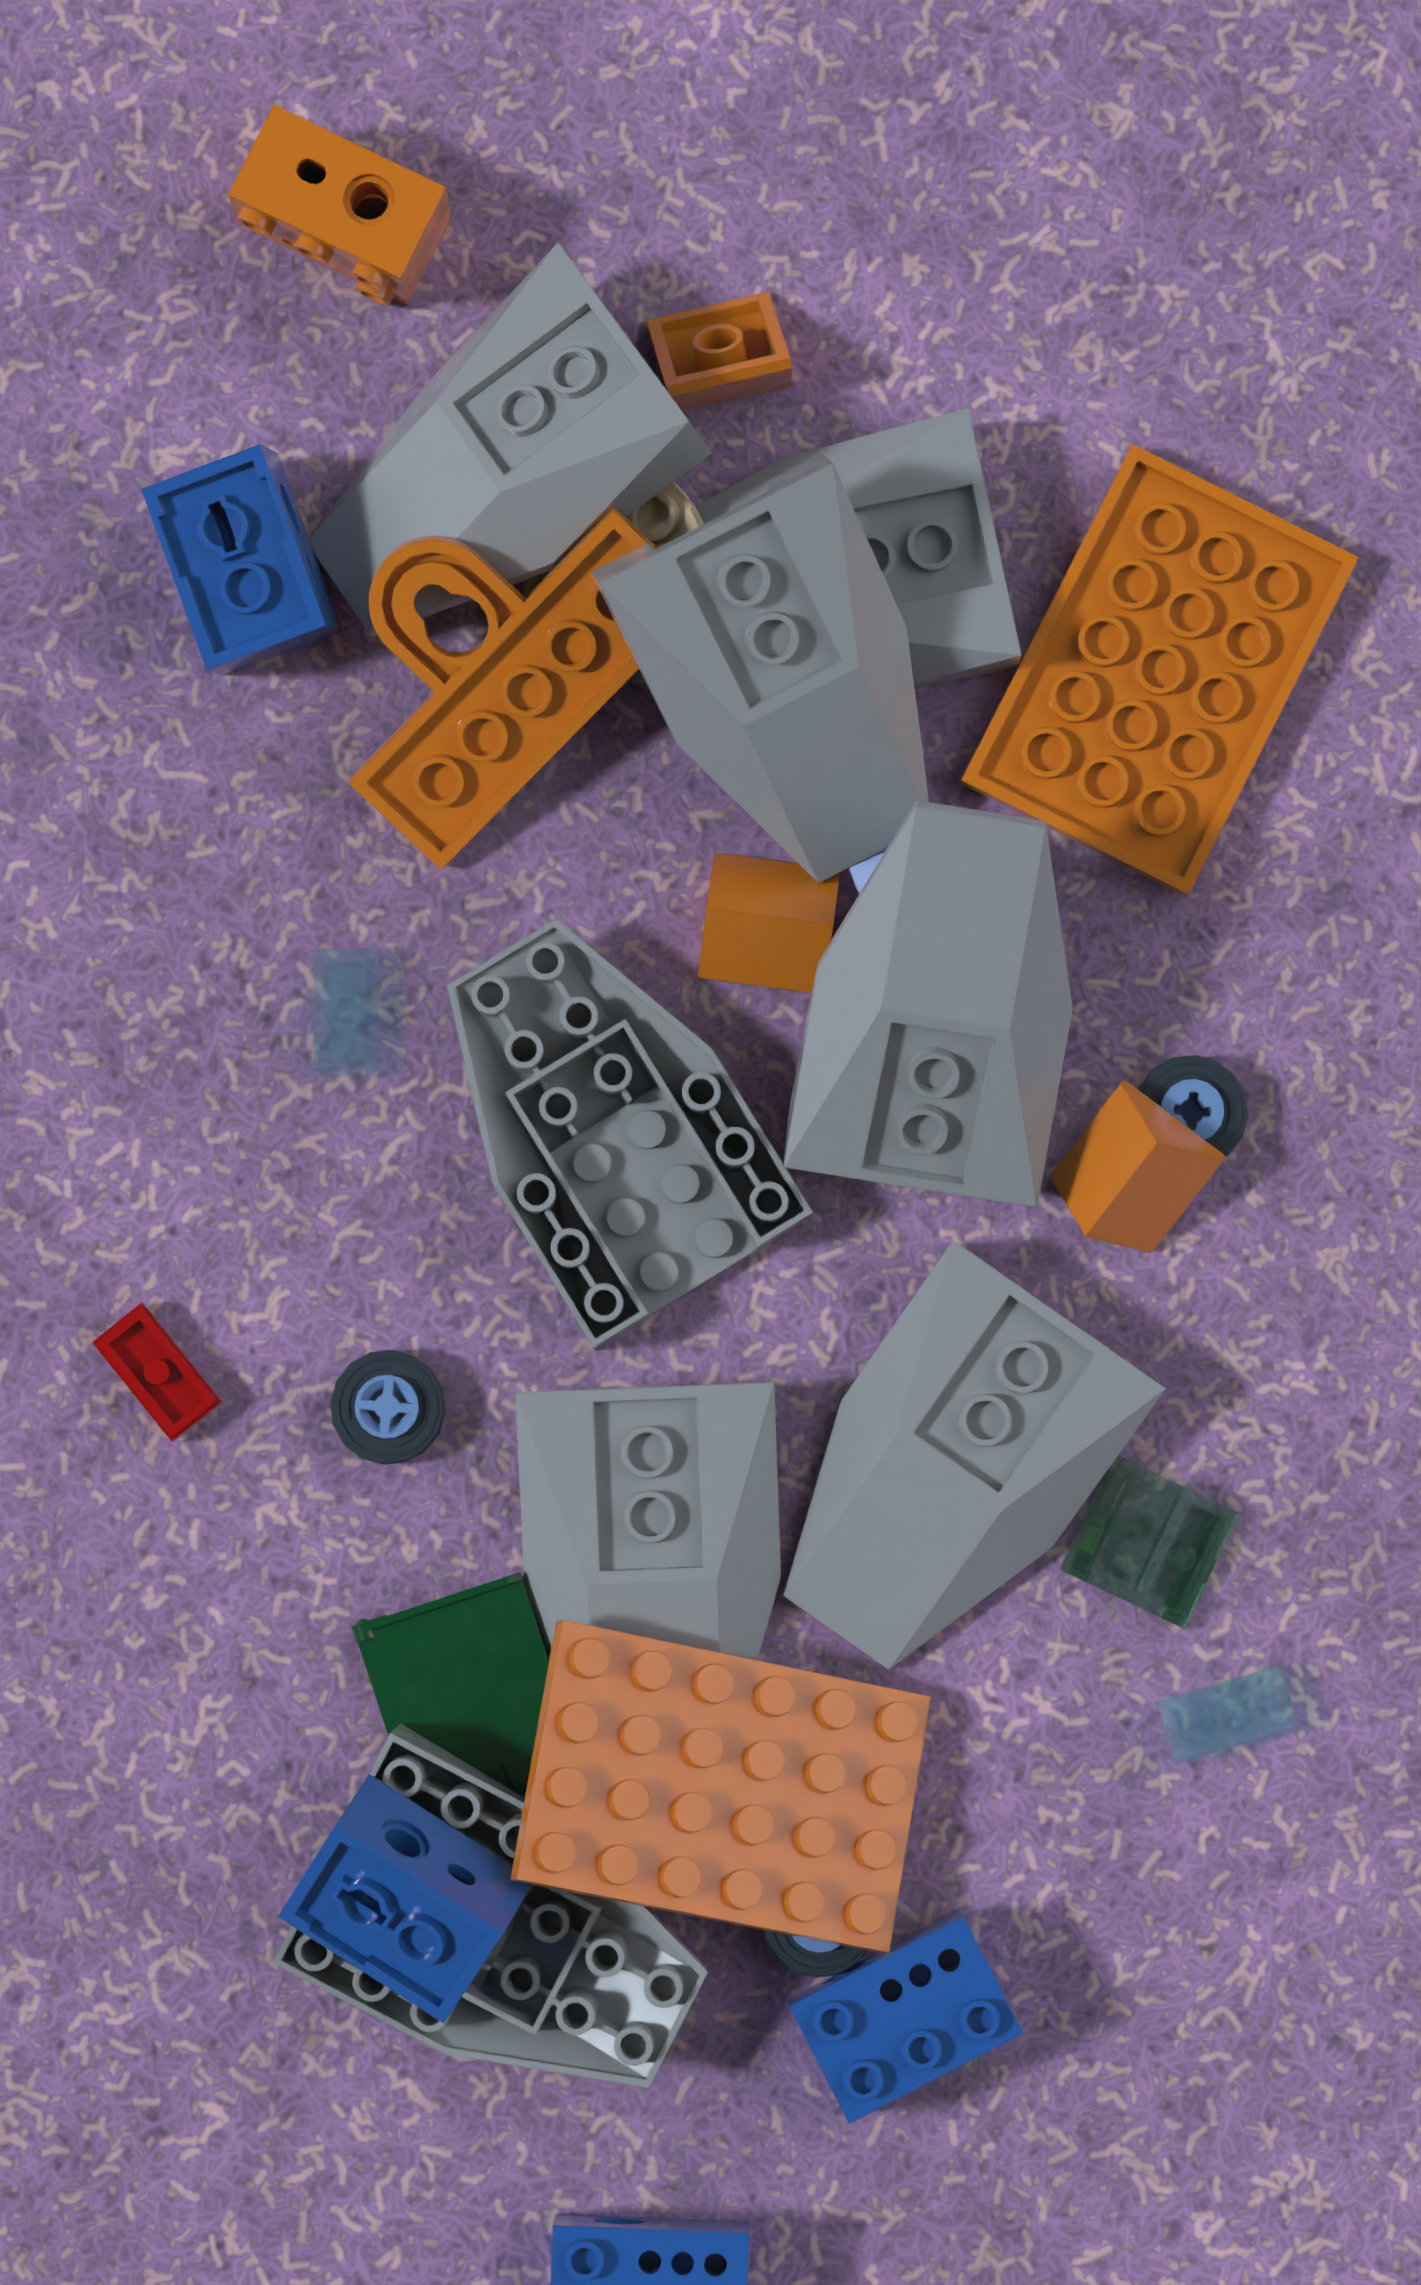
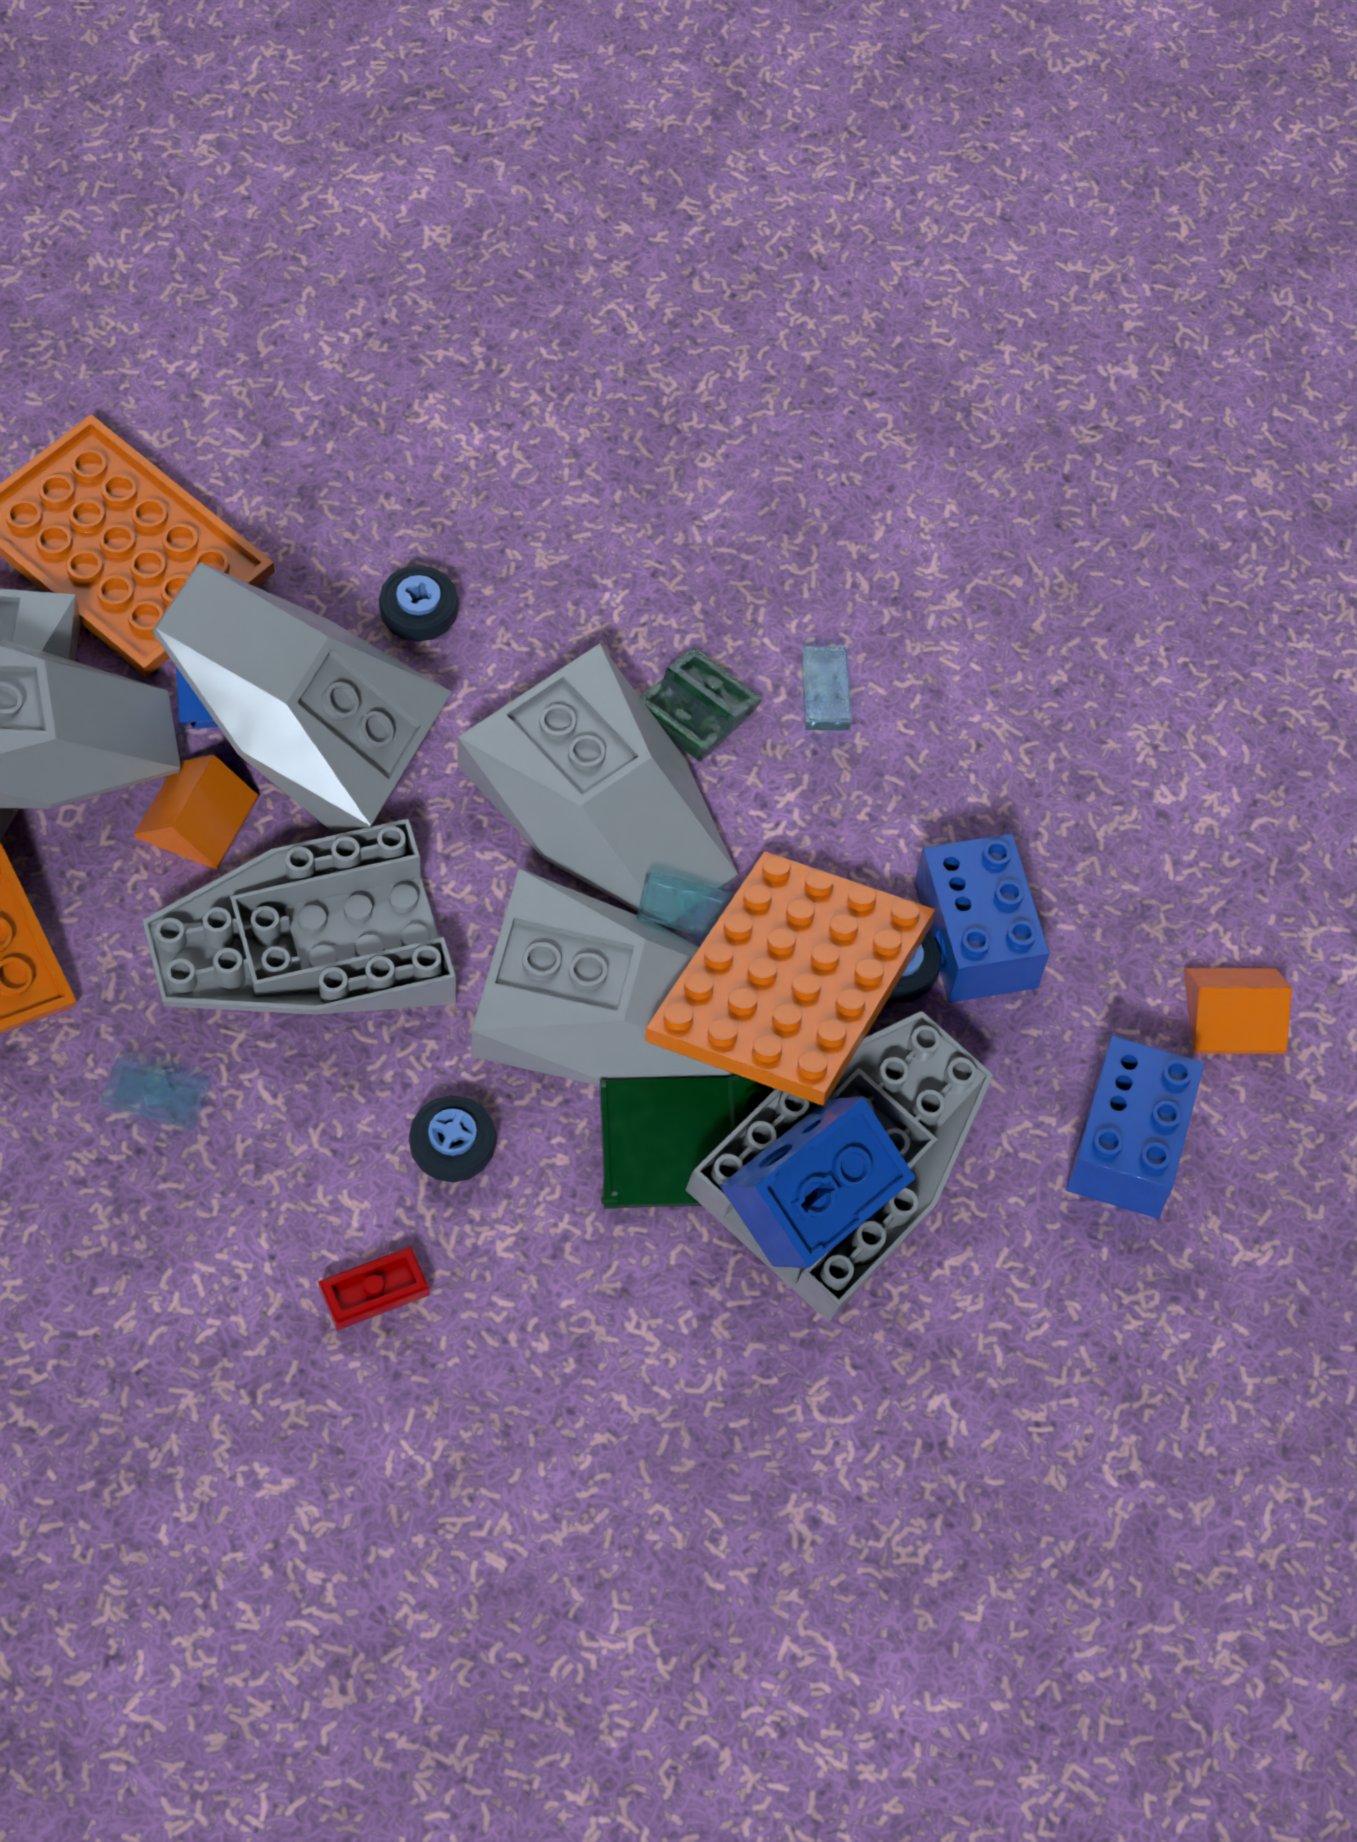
camera: 80 degrees left, 25 degrees down
(810, 1612) = (681, 903): none -> clear light blue plate
(1133, 1171) = (444, 635): orange slope -> none

